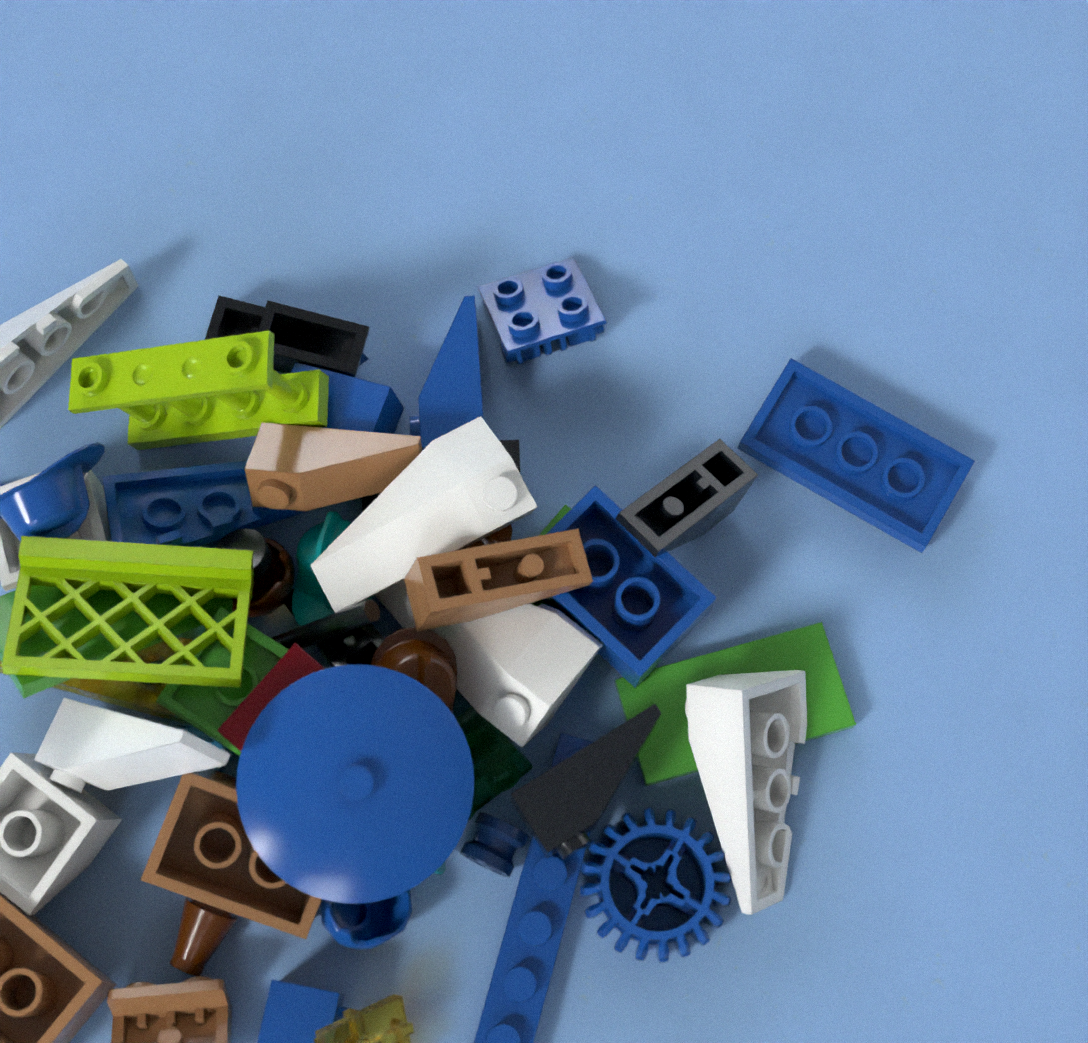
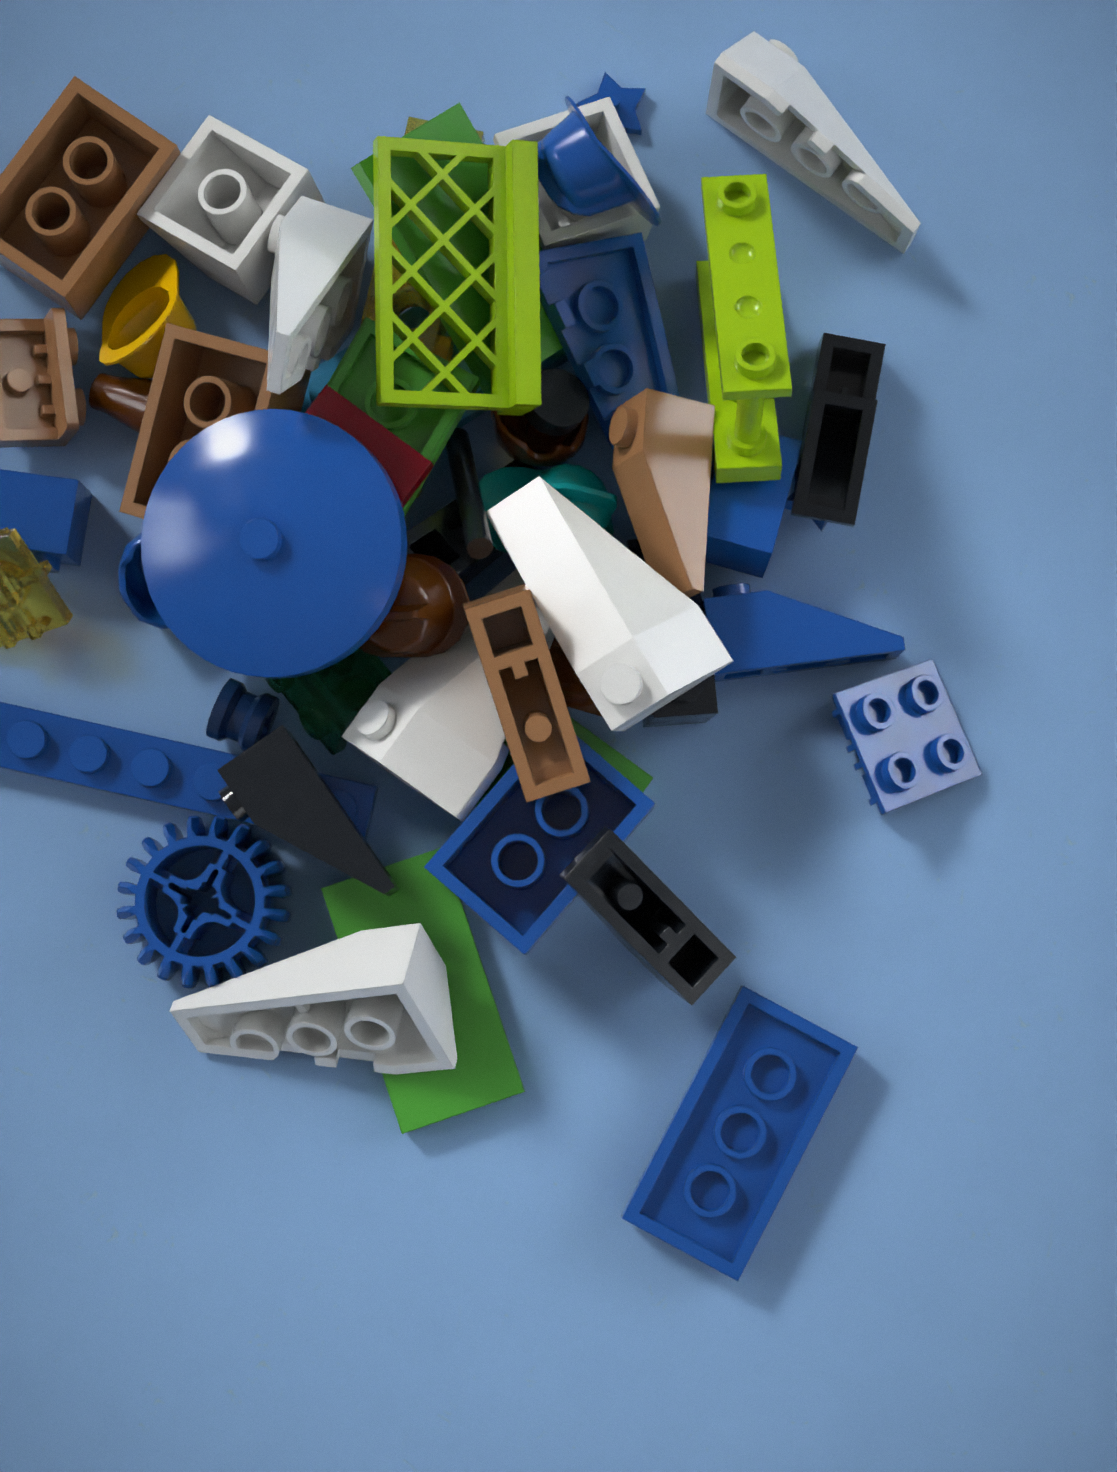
camera: 90 degrees right, 10 degrees up
(123, 918) = (139, 314): none -> yellow piece

